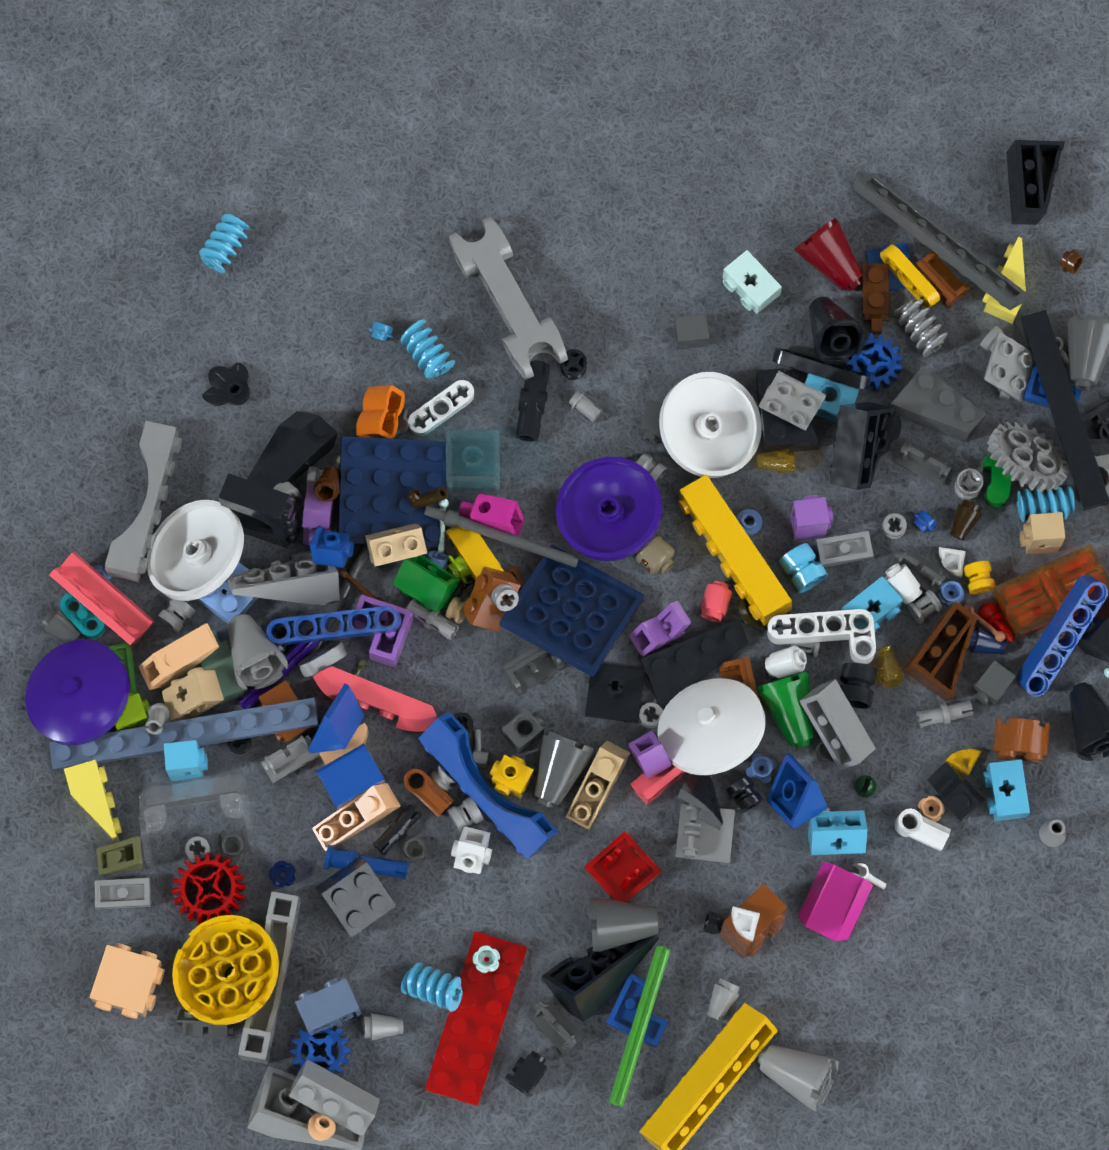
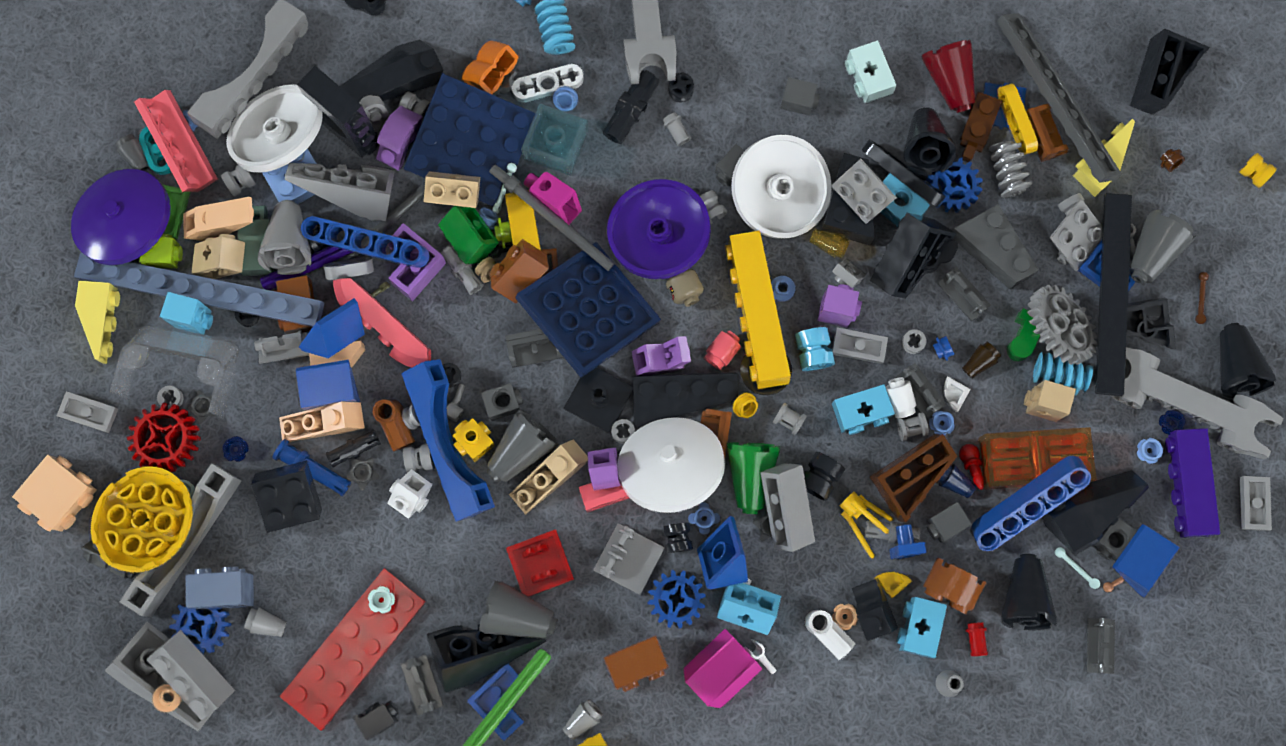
camera: 20 degrees right, 5 degrees up
(120, 857) = (95, 379): olive slope -> none
(157, 715) = (181, 263): light grey pin -> none
(327, 485) = (412, 112): reddish brown cone -> none
(331, 548) = (393, 170): blue brick -> none
(346, 575) = (399, 199): reddish brown hinge -> none
(429, 498) = (500, 159): dark brown arm -> none
(433, 986) = (322, 606): medium azure piece -> none
(465, 416) = (565, 98): none -> medium blue plate
(508, 604) = (523, 279): light grey bush -> none
(701, 793) = (637, 525): black slope -> none
(714, 924) = (604, 646): black hinge -> none
(745, 922) = (622, 667): white tile -> none
(753, 854) = (688, 602): none -> blue gear
(758, 646) = (745, 405): none -> yellow plate
(786, 662) = (764, 430): white brick -> none
(807, 484) = (848, 273): none -> light grey plate
(822, 633) = (806, 416): white beam -> none
(860, 783) = (789, 567): dark green hinge -> none
(889, 669) = (857, 473): clear yellow cone -> none
(900, 702) = (856, 506): none -> yellow plant
(963, 720) = (906, 545): none -> blue tile
(969, 479) = (1001, 326): light grey wheel -> none
(979, 577) = (974, 418): yellow wheel -> none
(999, 636) = (971, 480): nougat hinge -> none
(1062, 782) = (977, 638): none -> red pin

